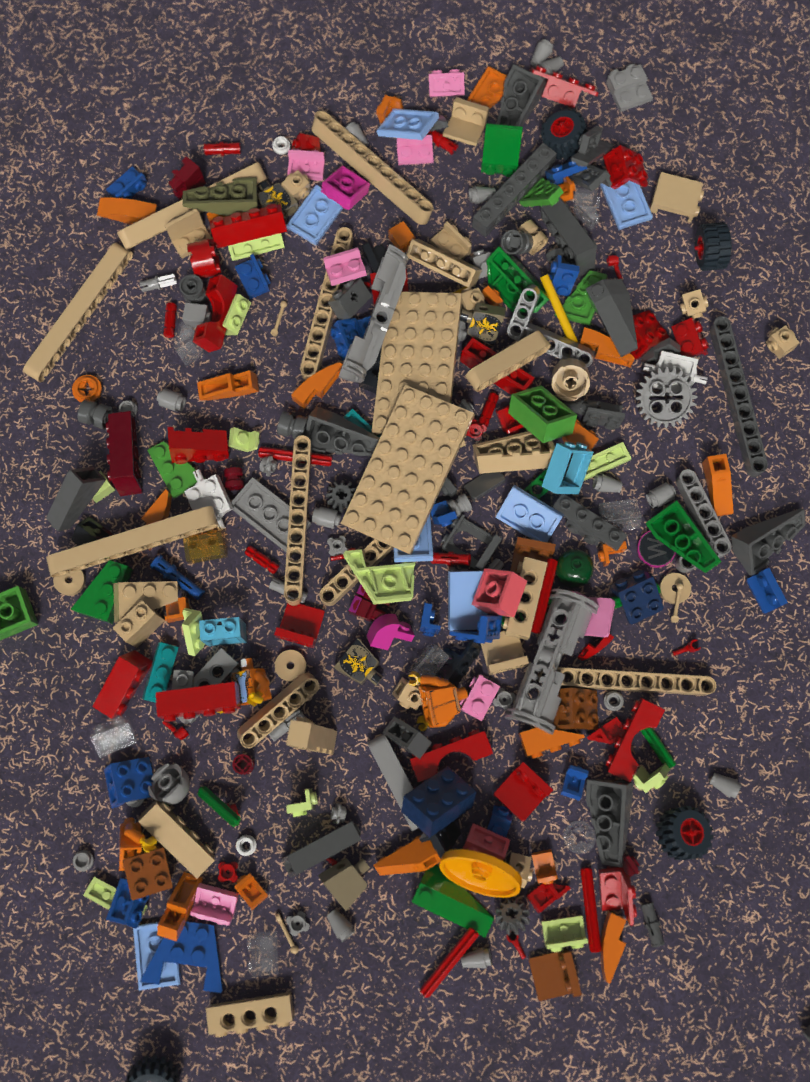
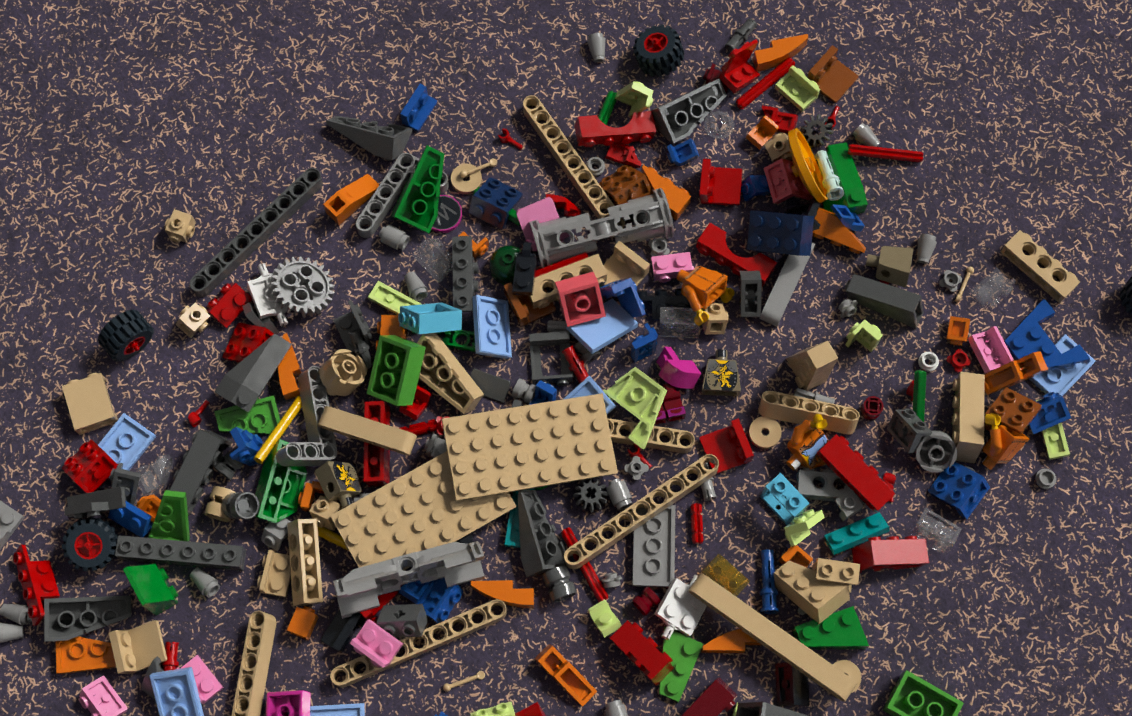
camera: 130 degrees left, 5 degrees down
(202, 777) = (907, 429): none -> dark grey bracket
(412, 875) = (848, 218): none -> blue slope
(456, 888) = (830, 180): none -> light aqua pin
(555, 567) = (525, 271): none -> black hinge

